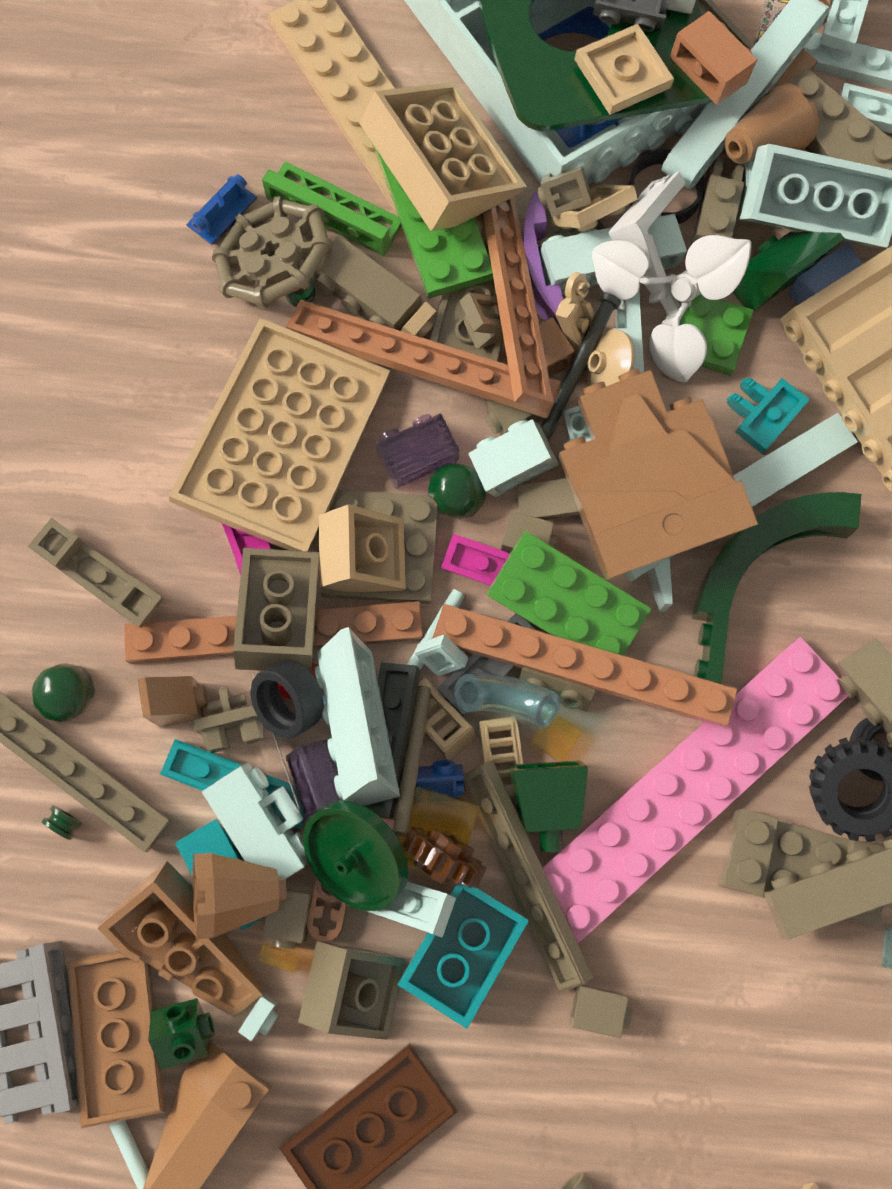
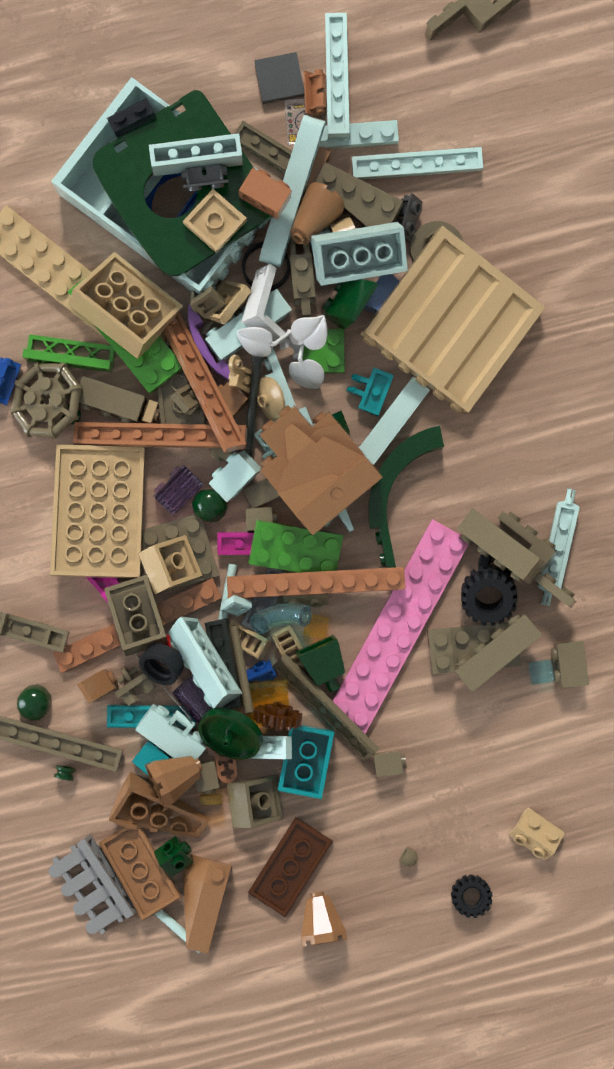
camera: 15 degrees left, 10 degrees up
(261, 1018) = (213, 833): light aqua plate -> none

